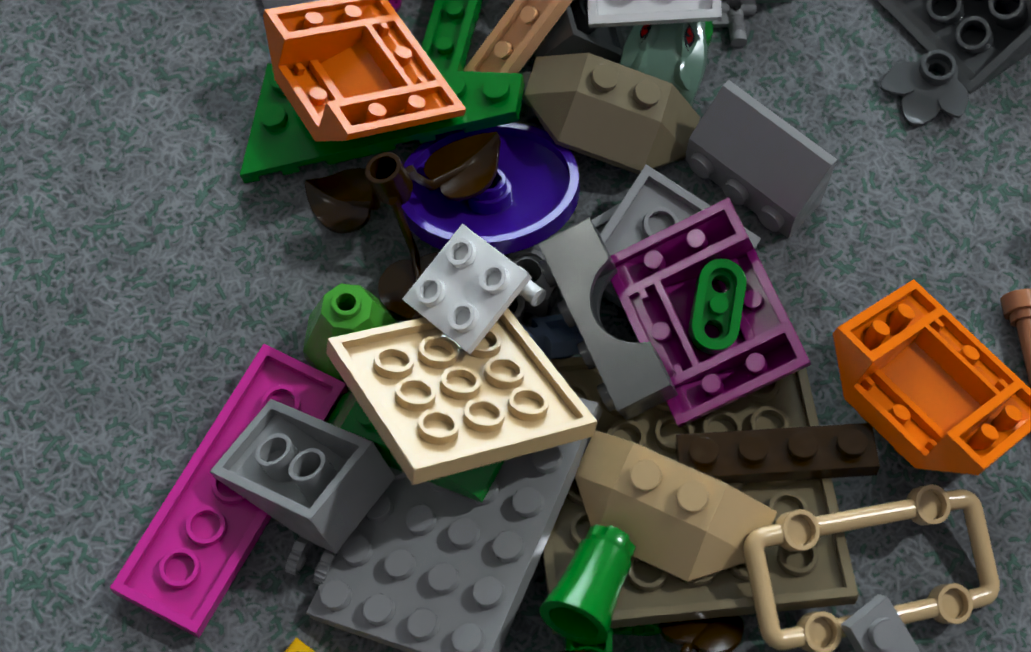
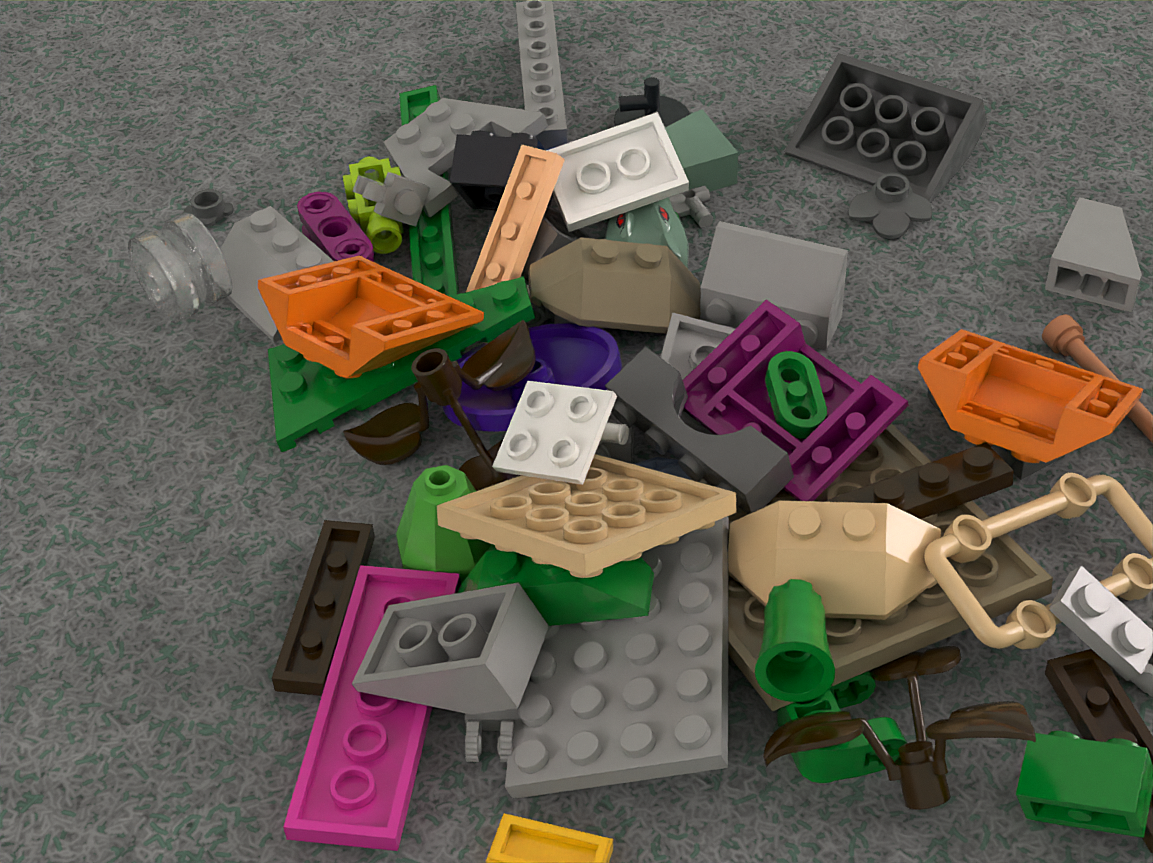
camera: 15 degrees left, 20 degrees down
(219, 370) = (322, 607): none -> dark brown plate

